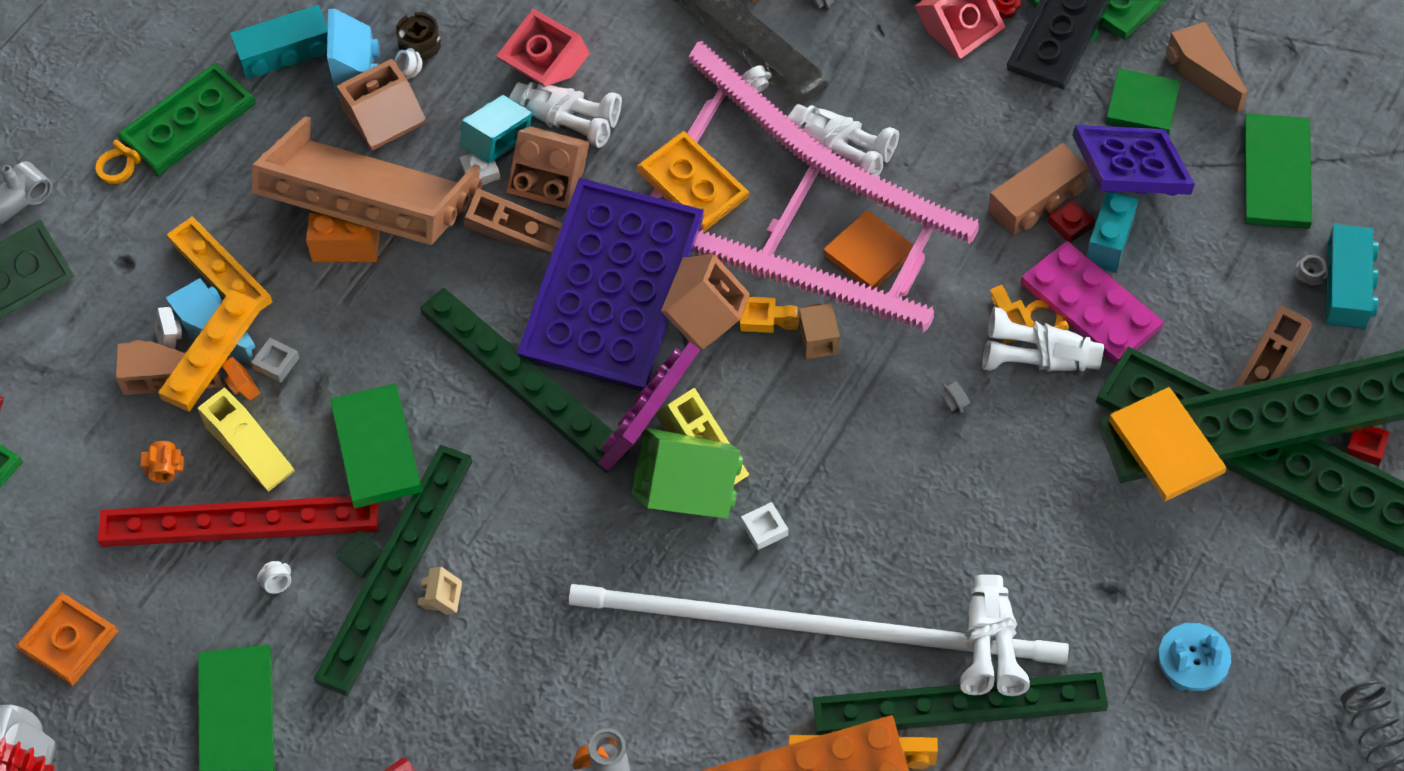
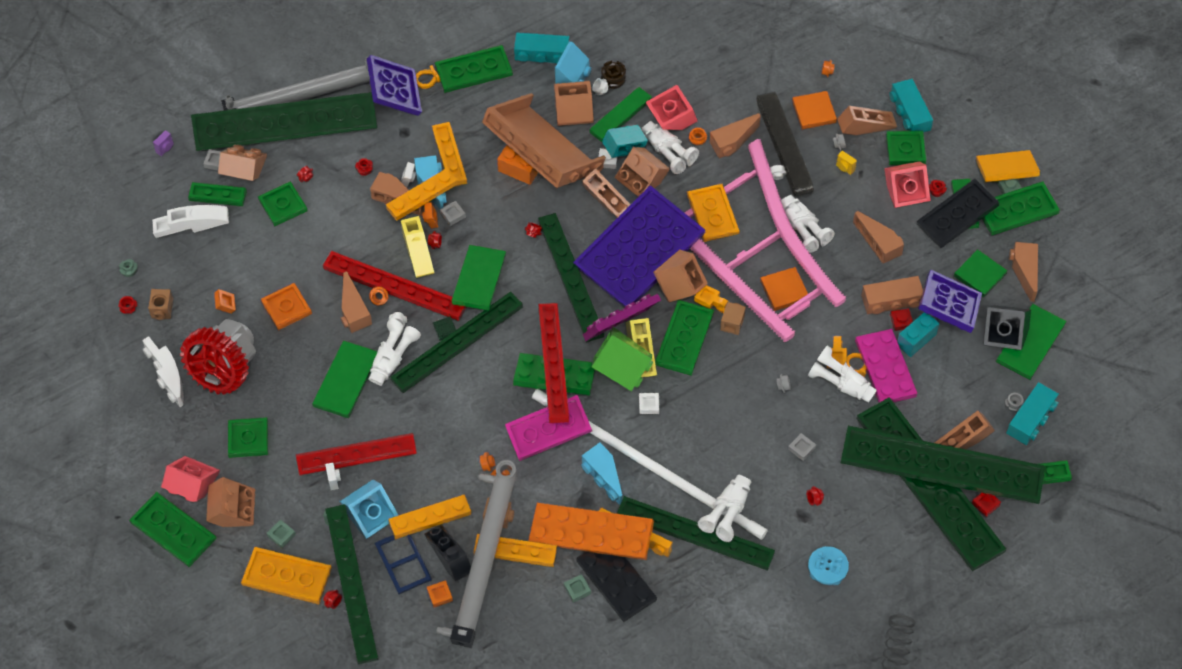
camera: 25 degrees right, 0 degrees up
(70, 195) = (394, 85): none -> dark purple plate
(87, 354) = (364, 170): none -> red plate
(161, 461) = (372, 240): orange gear -> none
(192, 593) = (353, 308): none -> nougat slope
(225, 559) = (374, 299): none -> orange plate
(268, 416) = (435, 240): none -> red plate
(291, 649) = (387, 359): none -> white piece
(422, 329) = (533, 229): none -> red plate
(441, 591) = (473, 363): tan tile -> none
(462, 92) = (621, 113): none -> green tile
(555, 746) = (487, 462): none -> orange plate
(581, 532) = (553, 363): none -> red plate
(585, 547) = (530, 374): none -> green plate
(599, 70) = (698, 132): none -> orange plate
(627, 641) = (535, 434): none -> dark pink plate
(654, 57) = (731, 137): none -> nougat slope
(752, 667) = (601, 466): none -> medium azure slope
(759, 395) = (684, 337): none -> green tile
(851, 22) = (846, 163): none -> yellow plate
(968, 112) = (879, 237): none -> nougat slope
(1042, 485) = (802, 447): none -> light grey plate
(1108, 554) = (815, 496): none -> red plate
(1167, 444) = (873, 453): light orange tile -> none
(1236, 163) = (1007, 326): none -> black slope

